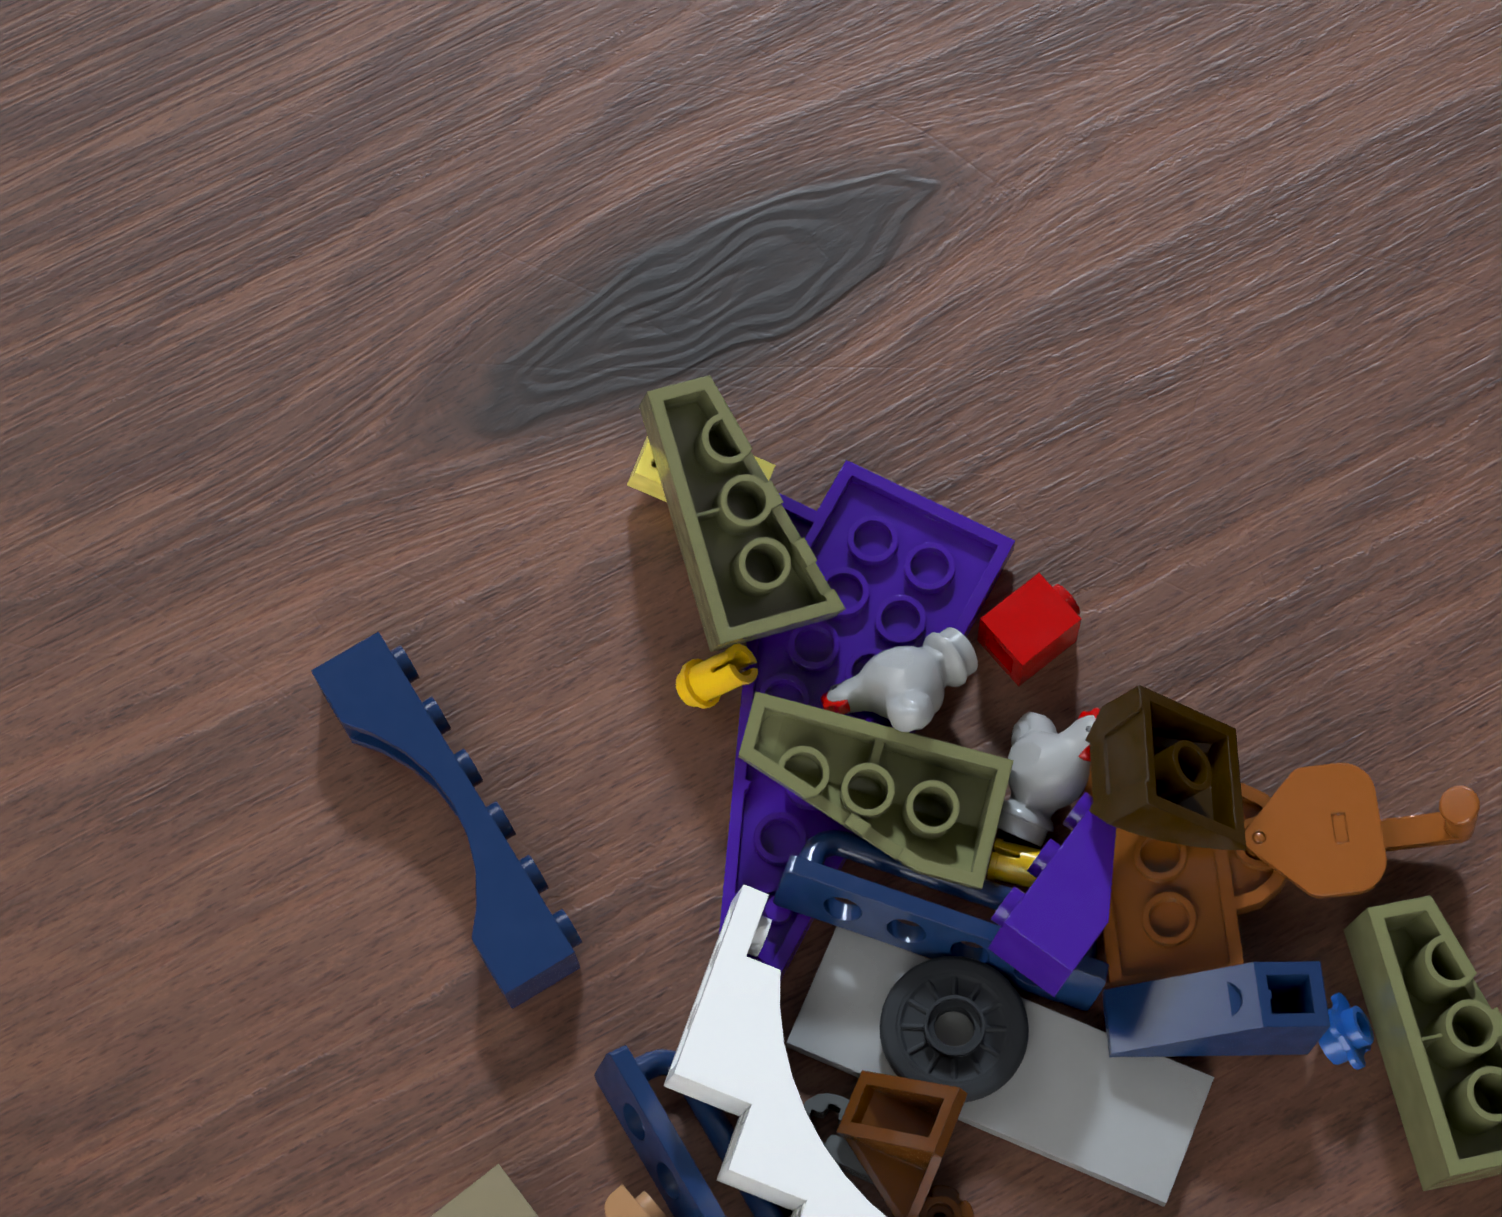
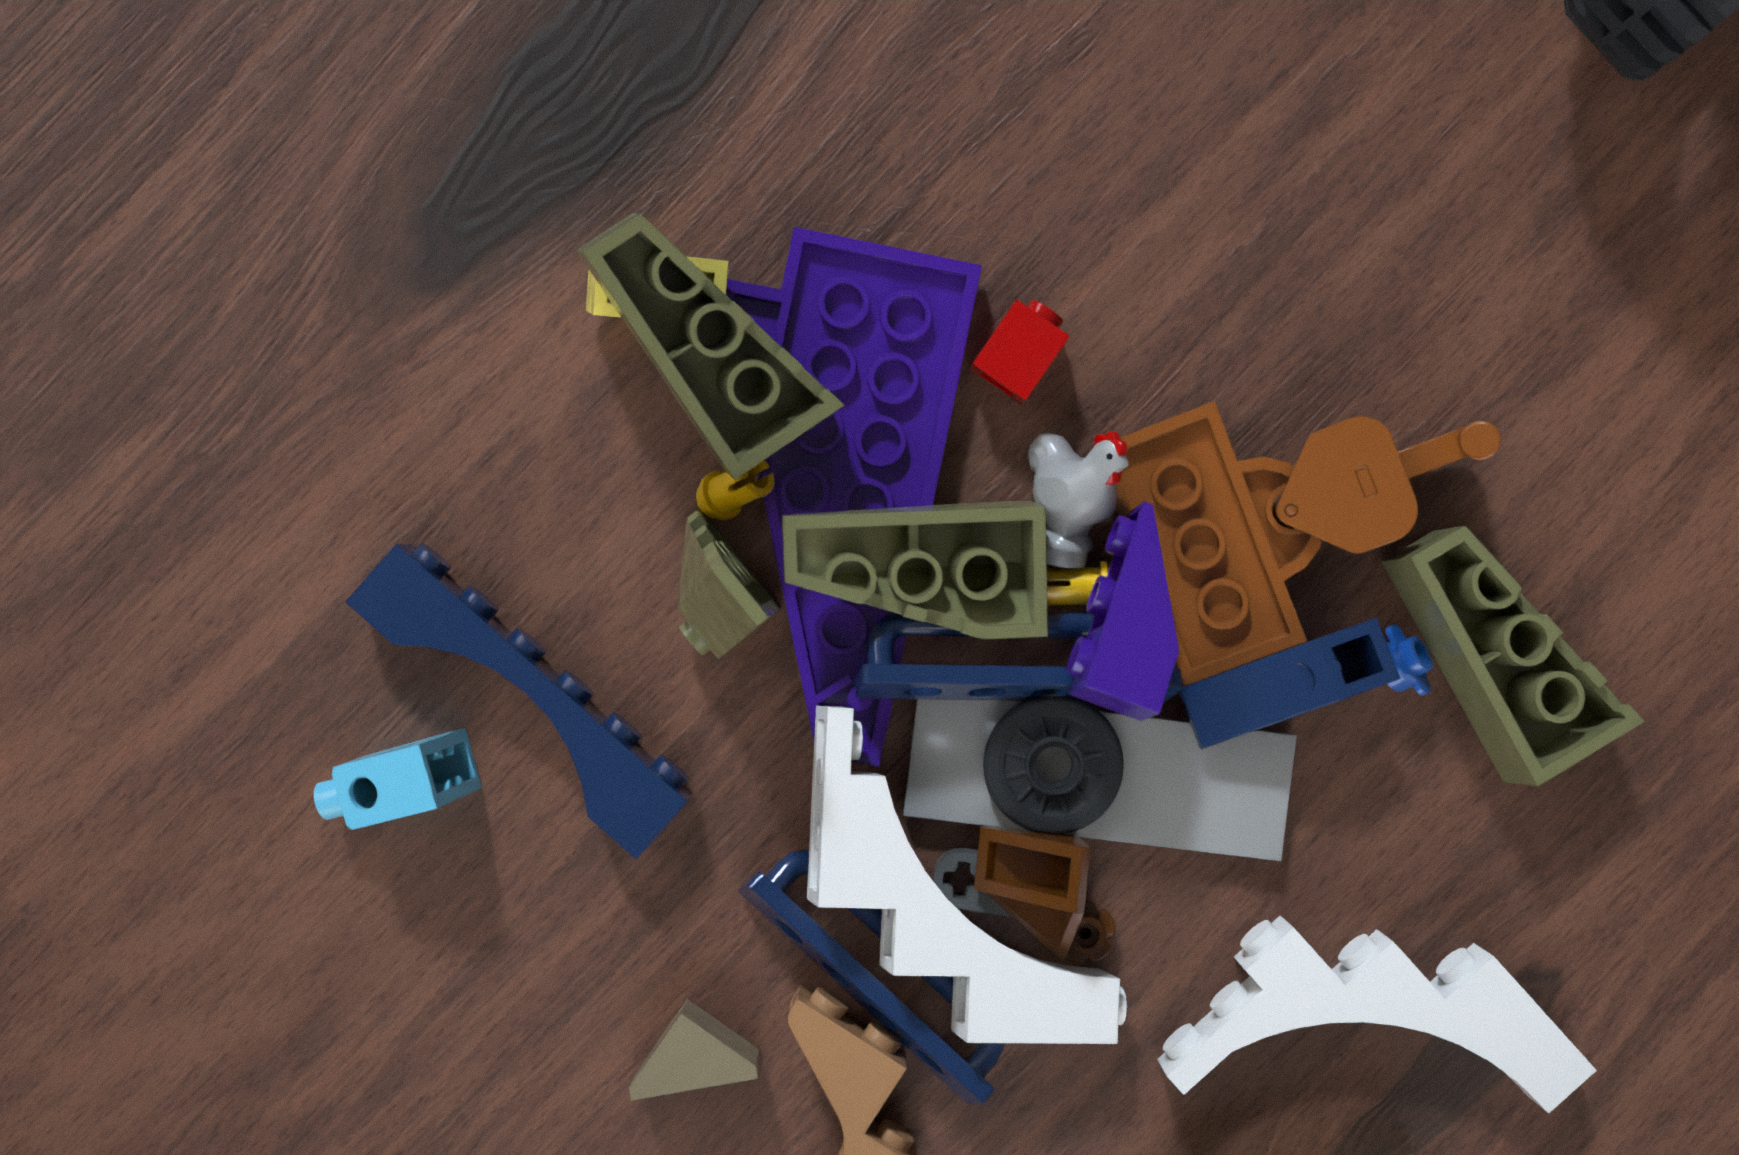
camera: 20 degrees left, 20 degrees up
(300, 855) = (400, 781): none -> medium azure torso
(675, 763) = (718, 591): none -> olive wedge
(906, 681) = (920, 454): light grey animal -> none
(1166, 772) = (1196, 486): dark brown slope -> none

